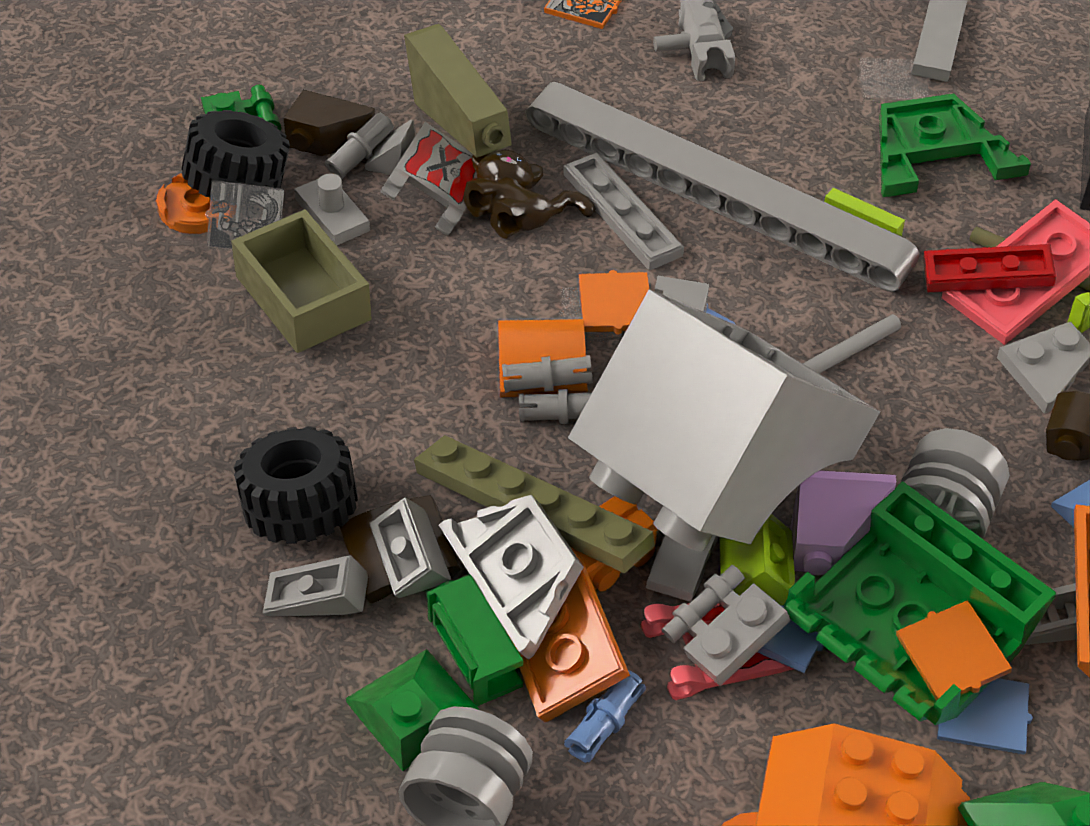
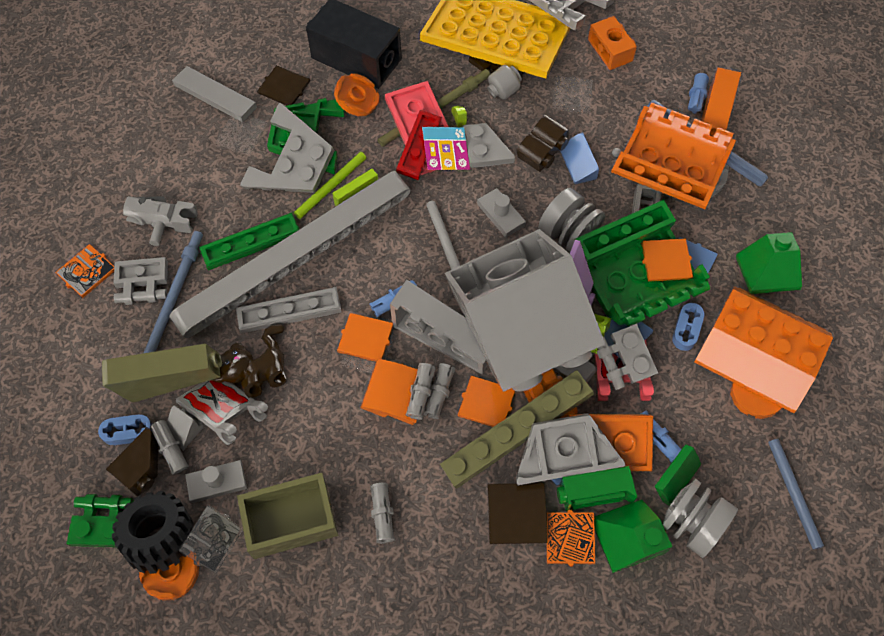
camera: 70 degrees left, 15 degrees up
(296, 484) = (443, 546): black tyre -> none
(317, 589) = (537, 571): light grey slope -> none
(319, 399) = (382, 513): none -> light grey pin
(378, 99) = (122, 423): none -> medium blue beam
(385, 630) = (570, 538): none -> orange piece
(409, 549) = (530, 507): light grey slope -> none
(557, 753) = (678, 474): none -> green tile
(569, 469) = (485, 402): none -> orange piece
(602, 46) = (140, 273): none -> light grey plate
(656, 85) = (188, 256): none -> sand blue bar
(699, 127) = (248, 241): none -> green tile
(844, 713) = (682, 324): none -> medium blue beam
(878, 143) = (300, 162): none -> light grey wing
(895, 207) = (330, 185): none -> lime bar
(930, 410) = (501, 212): none -> light grey tile
(1003, 303) = (446, 148): none -> sticker
(1009, 100) = (283, 86): none -> dark brown piece
(1038, 174) = (356, 95): none -> orange tile

